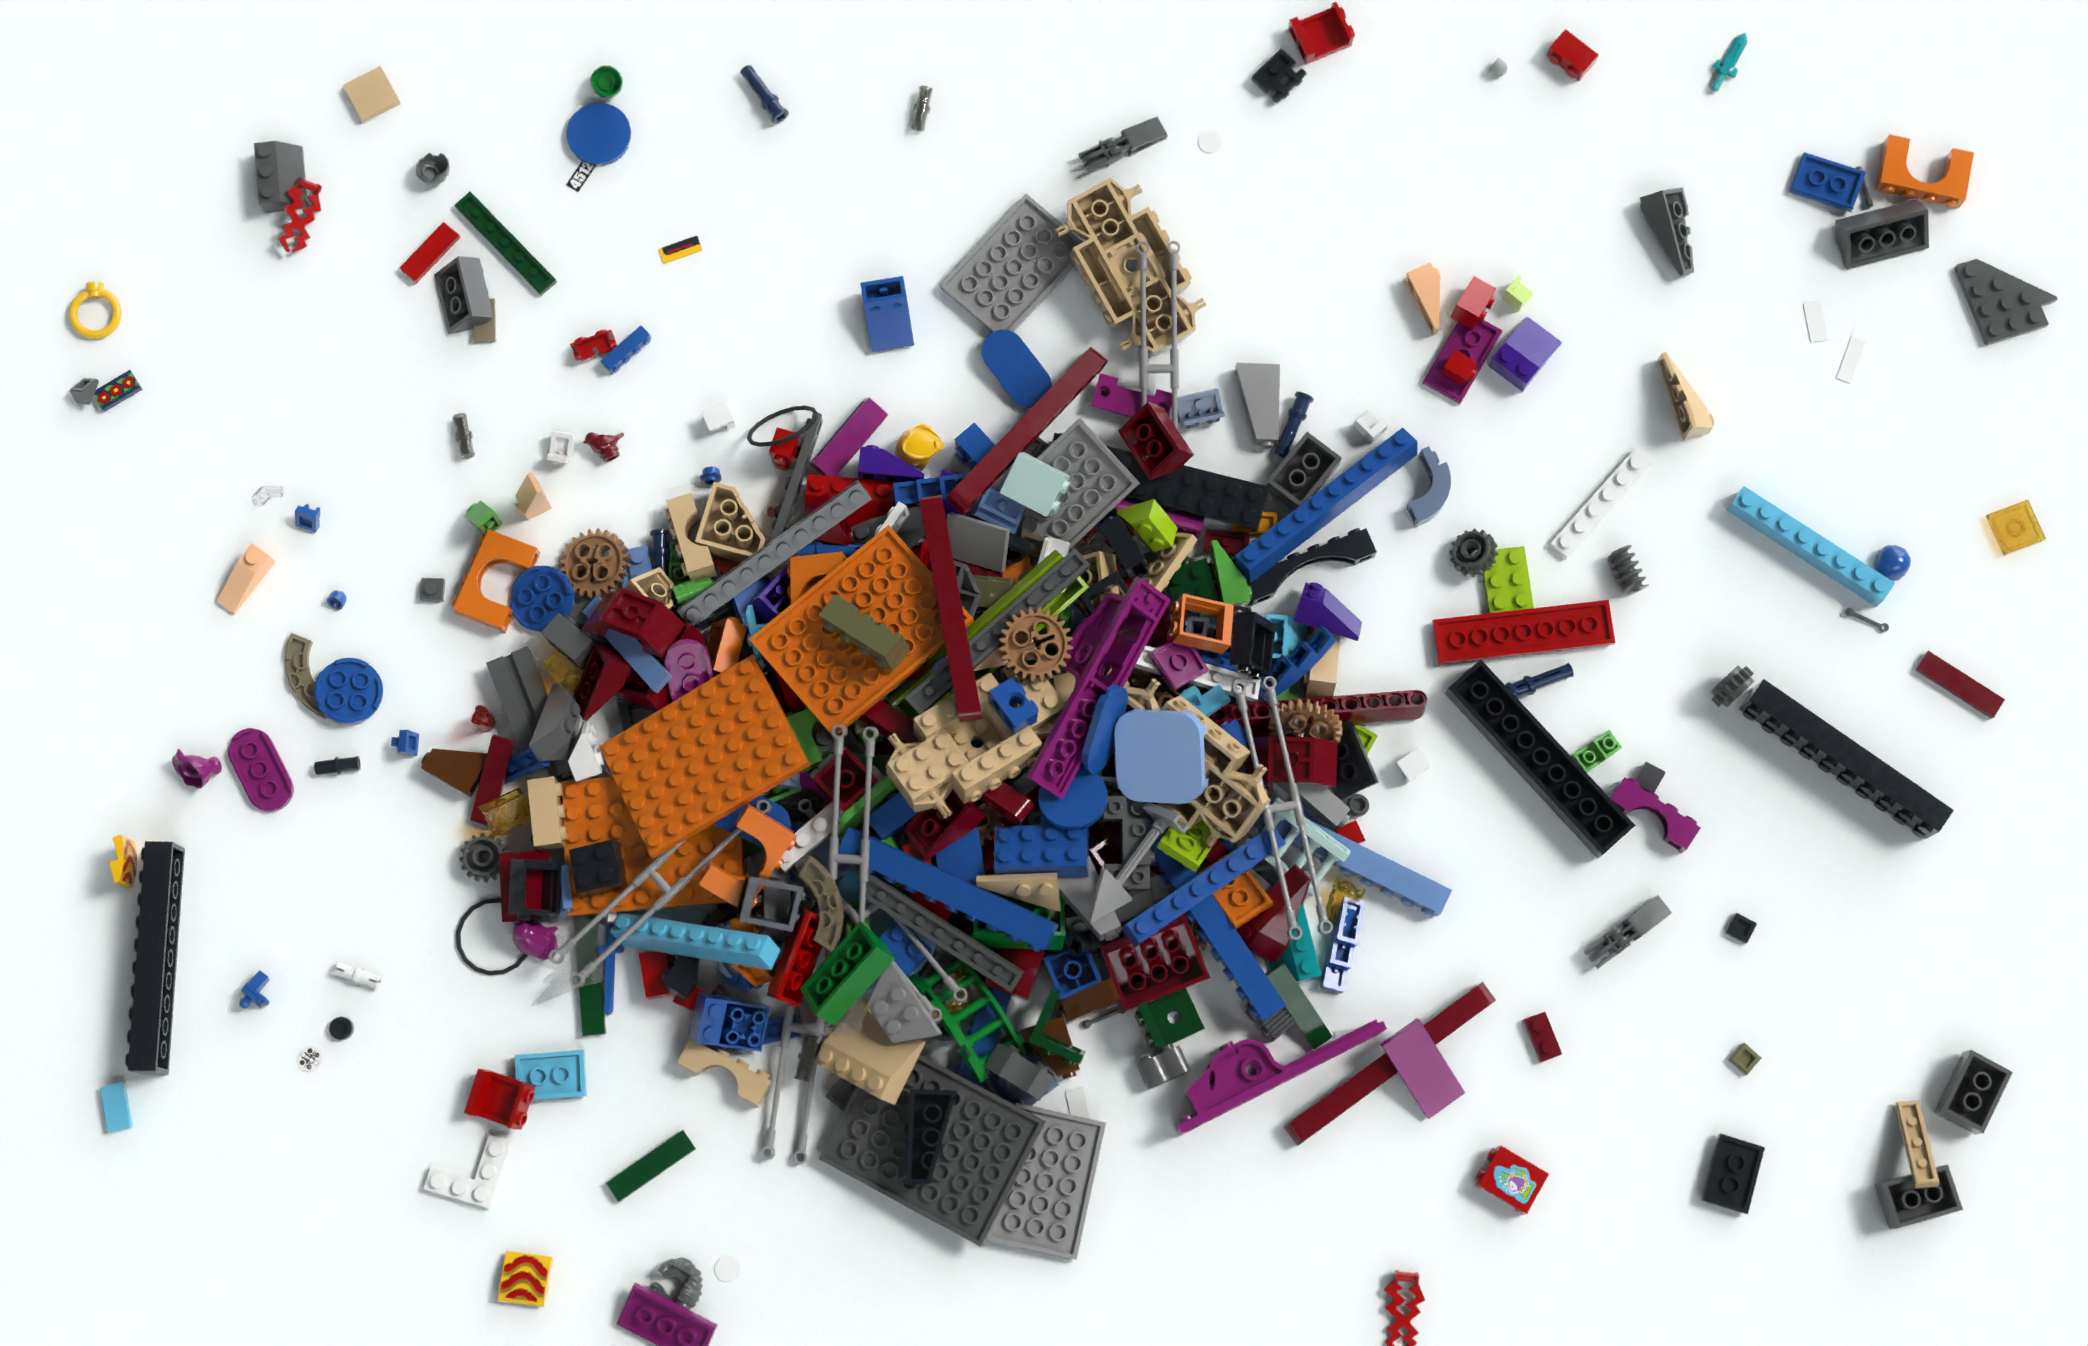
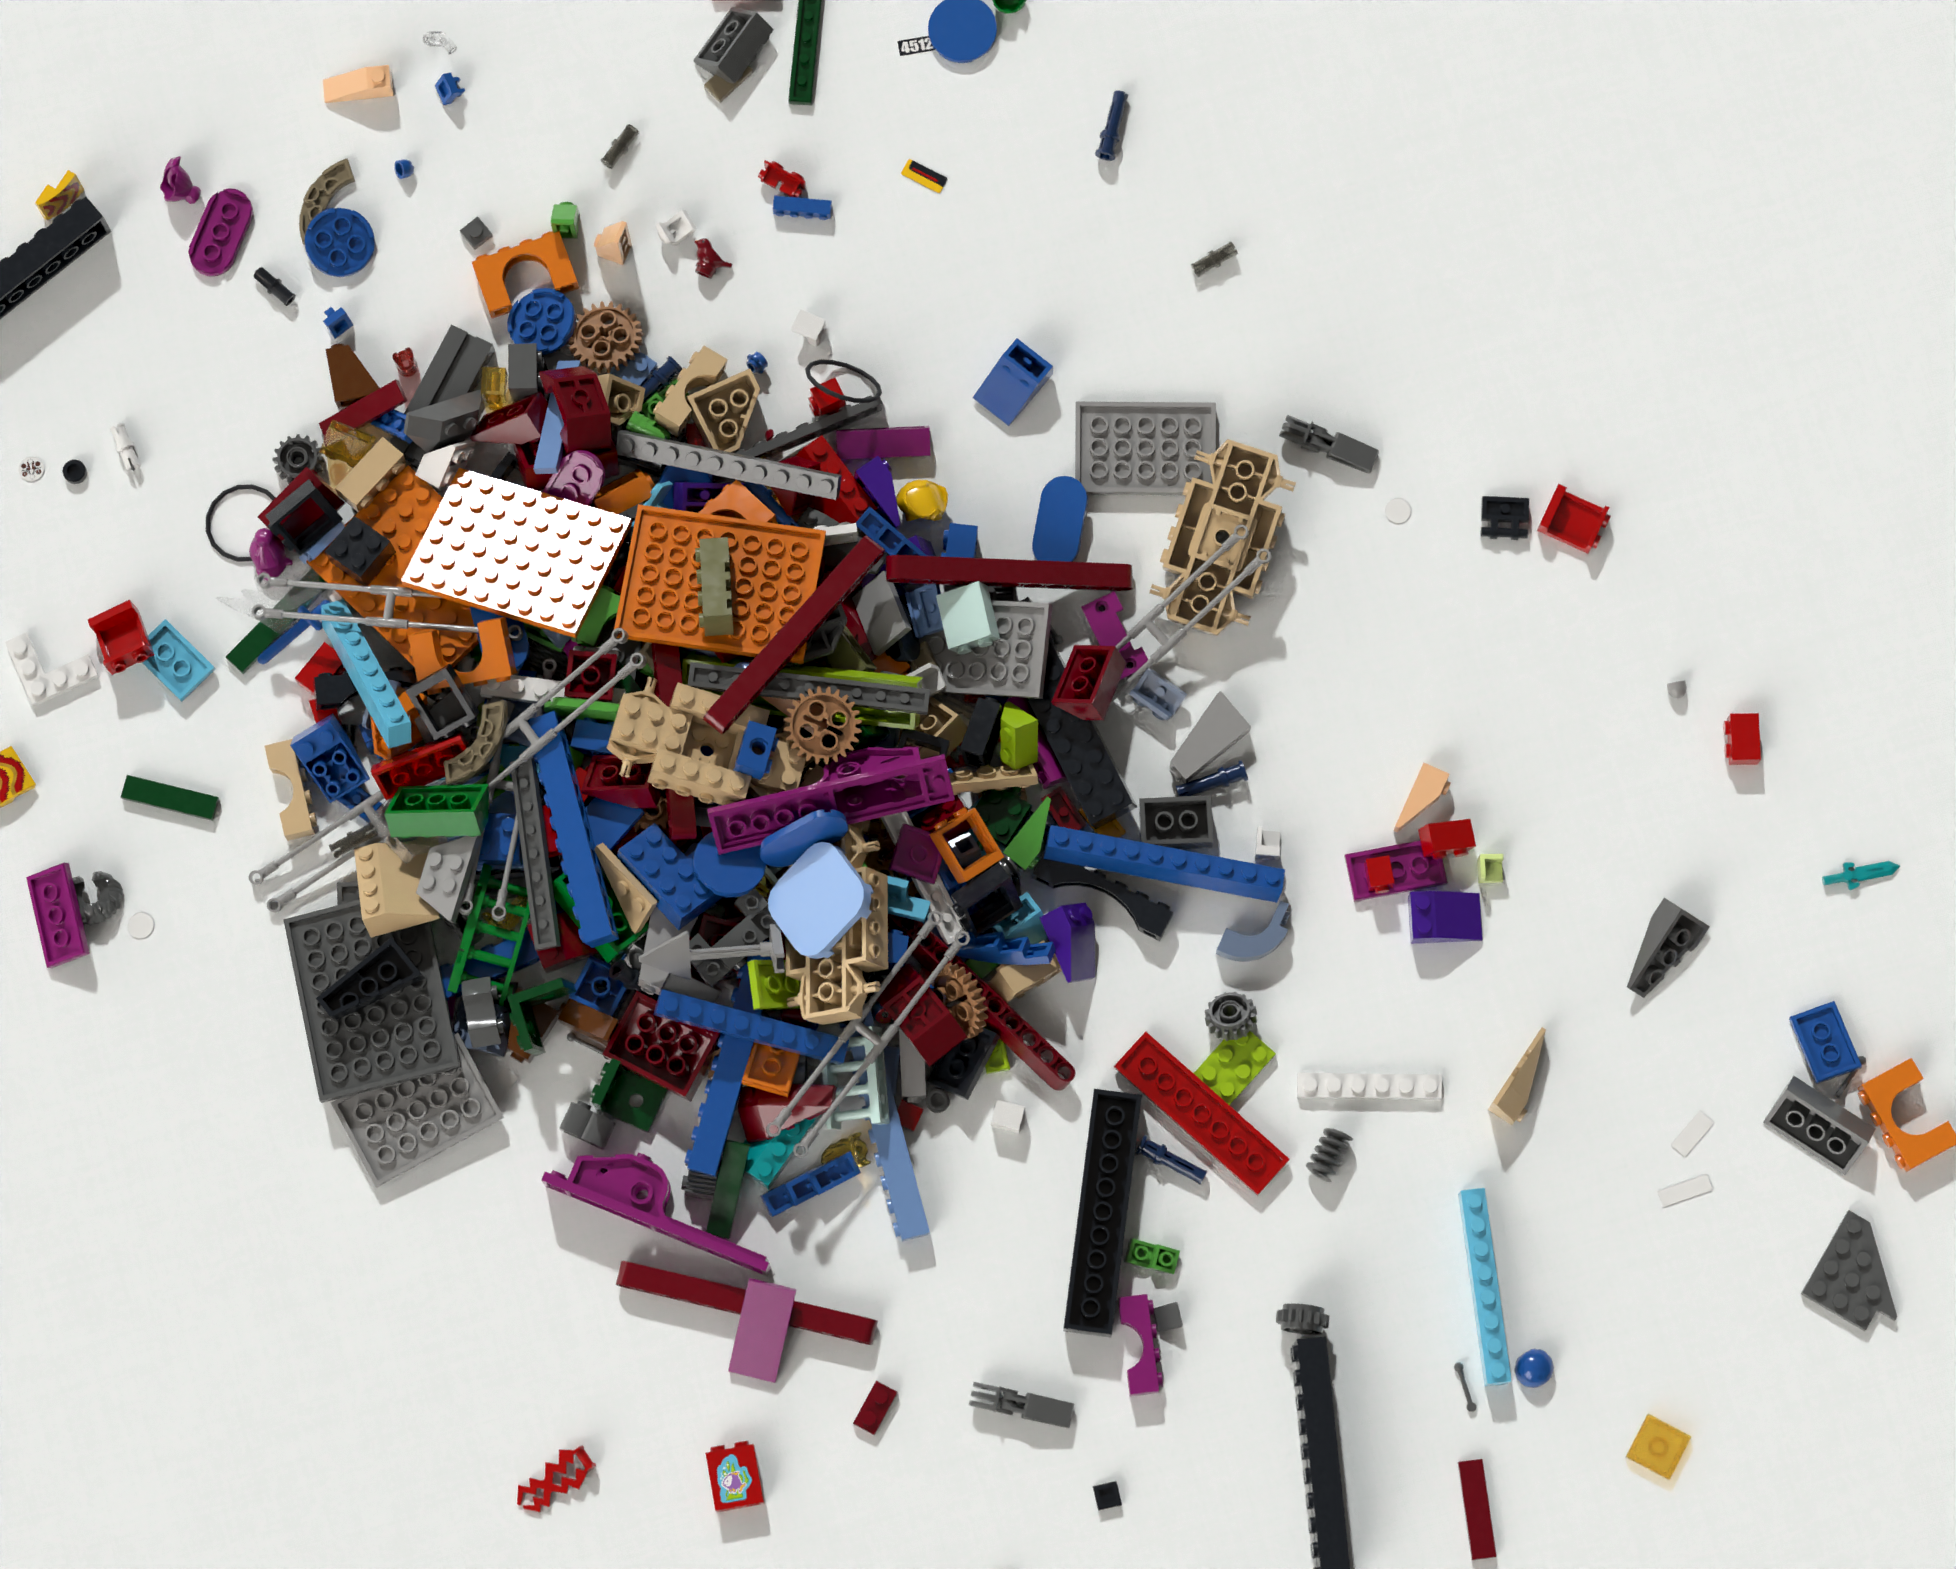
camera: 50 degrees right, 0 degrees up
(252, 990) = (44, 379): blue piece -> none

